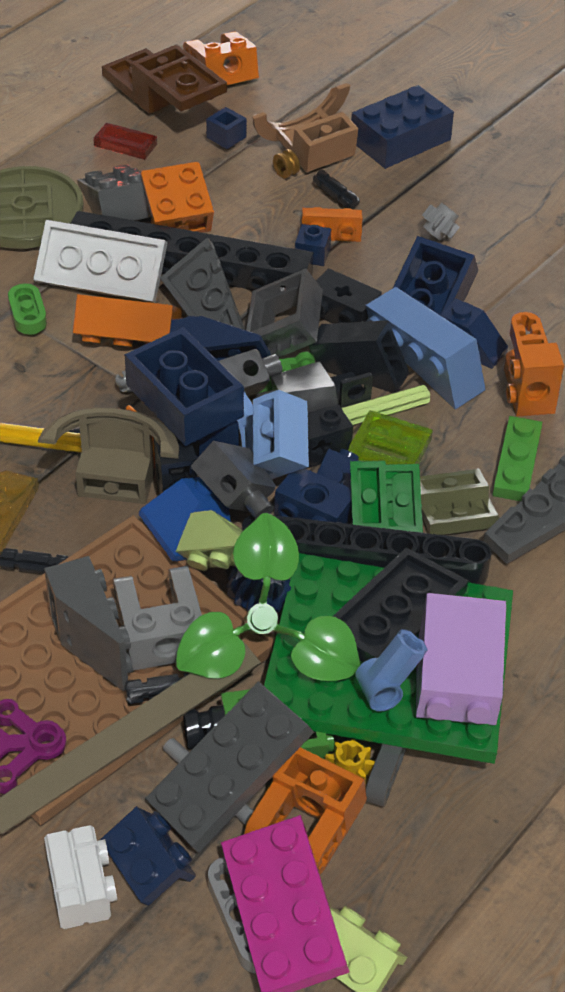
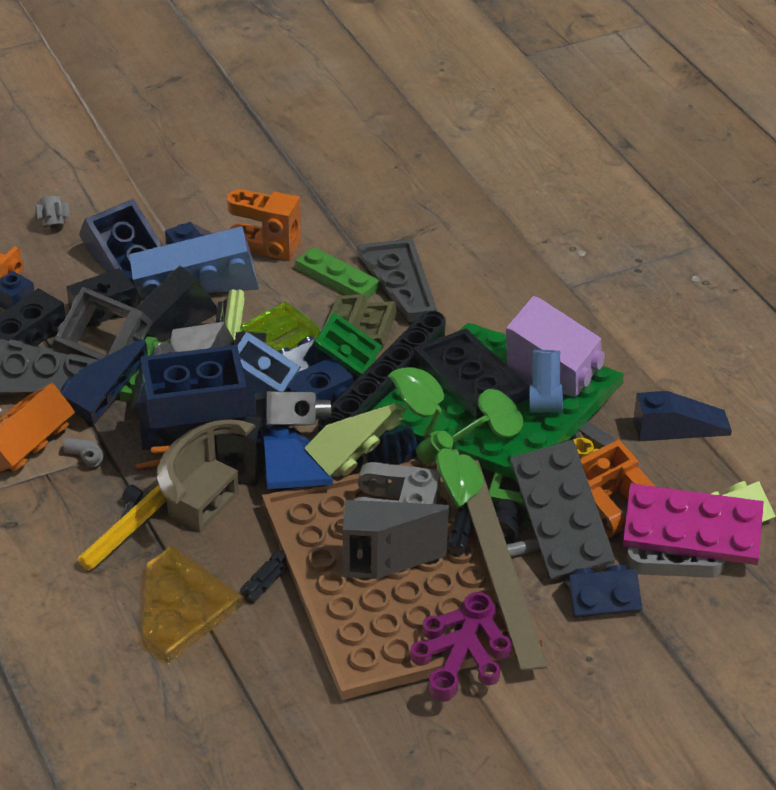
camera: 65 degrees left, 5 degrees down
(78, 876) = (606, 634): white brick -> none
(482, 844) = (673, 416): none -> dark blue slope

